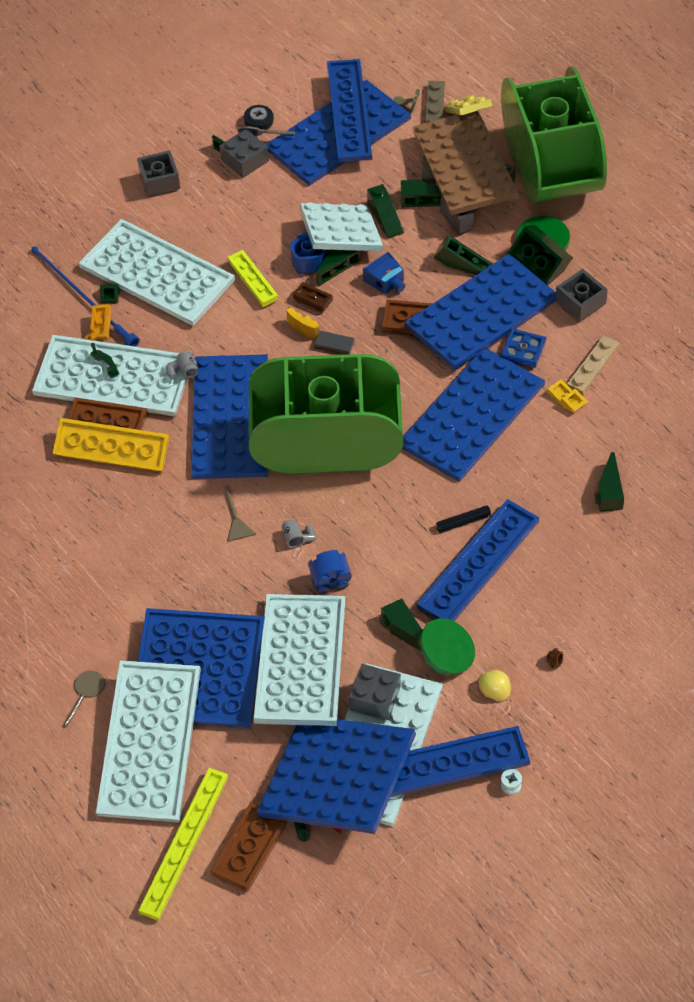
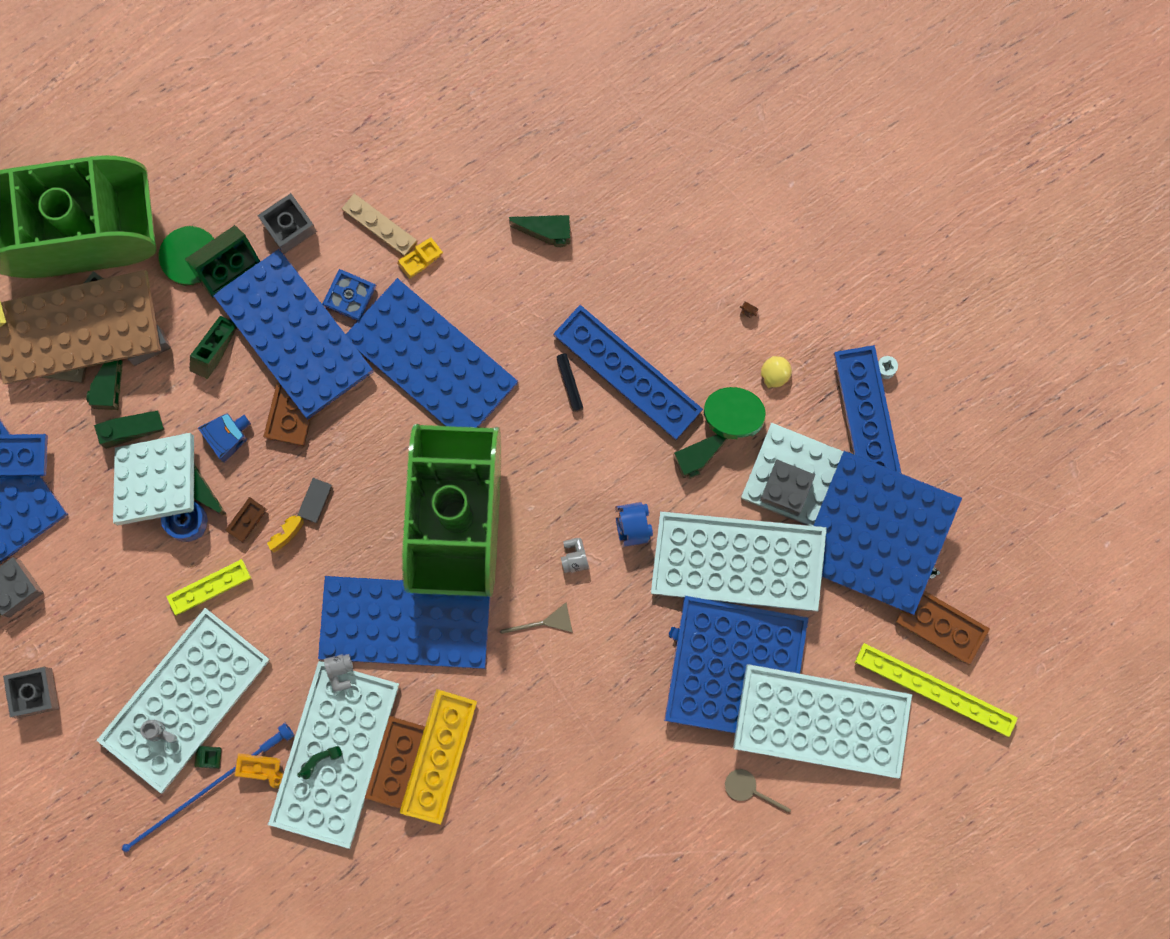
camera: 85 degrees left, 25 degrees up
(129, 250) = (155, 730): none -> light grey piece

